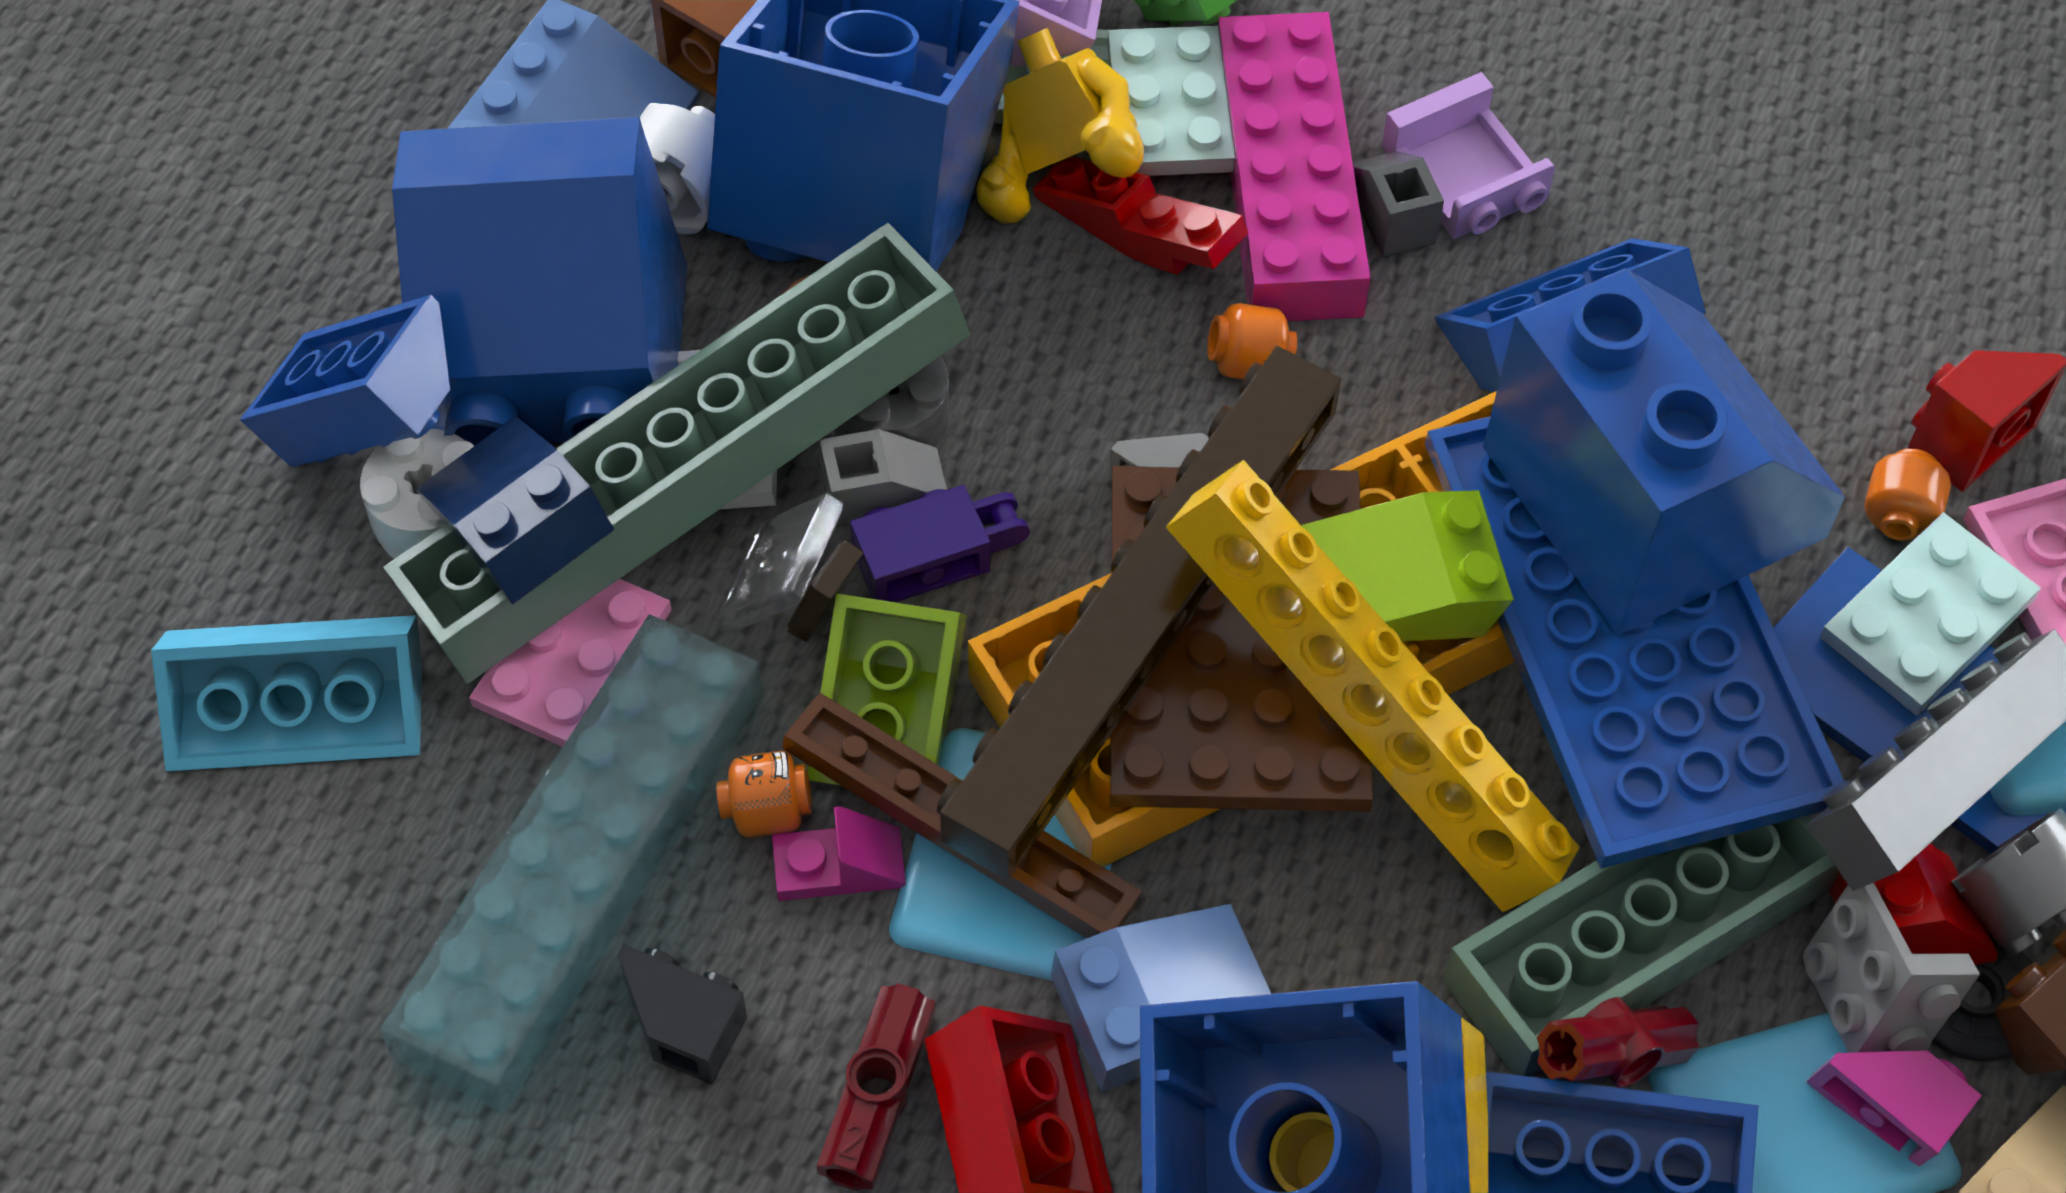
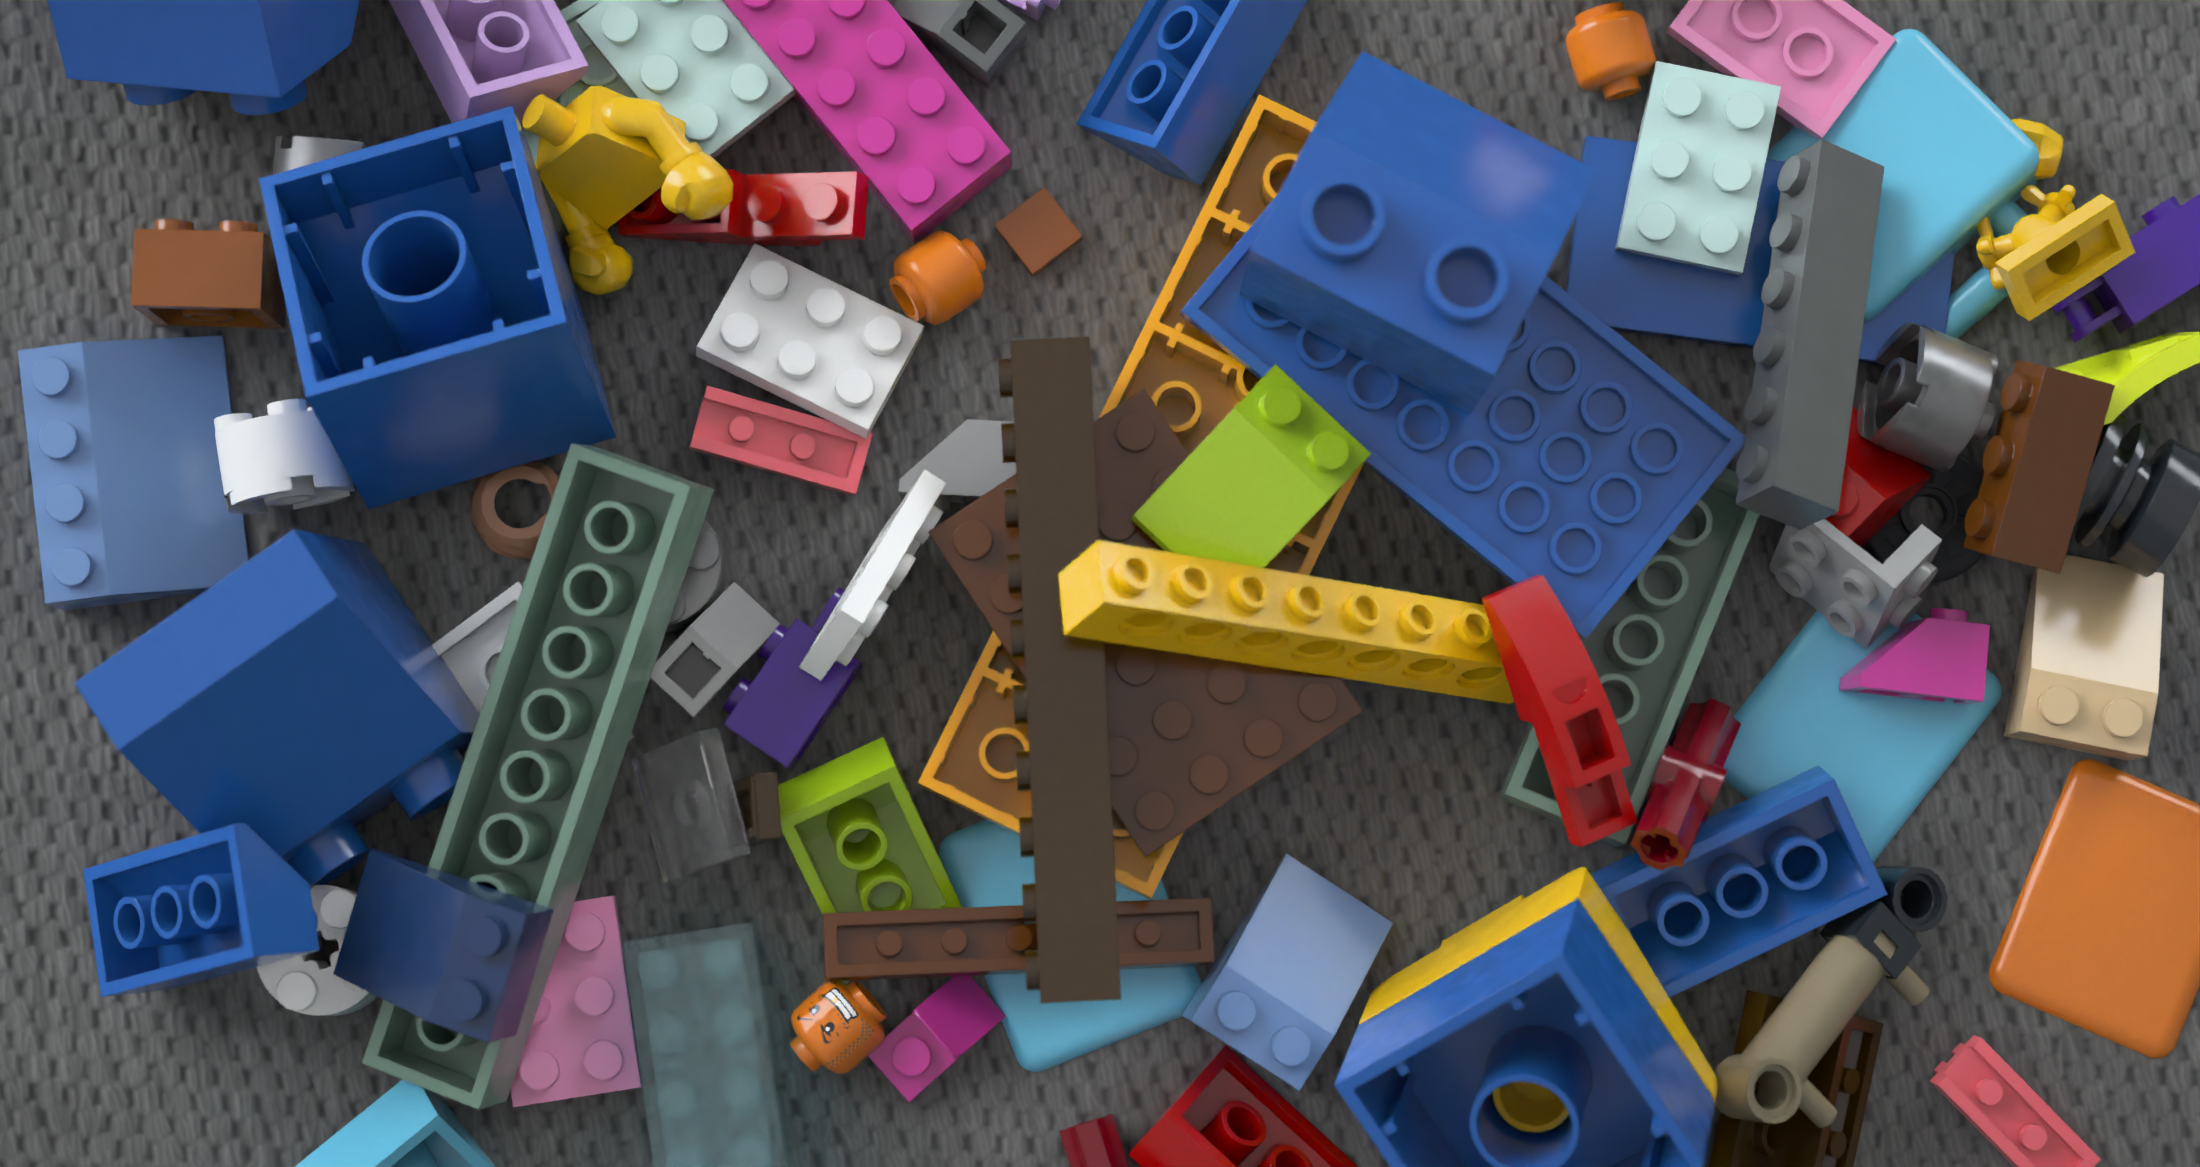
camera: 35 degrees left, 25 degrees up
(1044, 474) = (876, 578): none -> white plate
(1047, 380) = (779, 441): none -> coral hinge
(1121, 329) = (810, 341): none -> white plate
(1356, 362) = (1038, 232): none -> dark orange tile
(1551, 895) = (1568, 708): none -> red slope

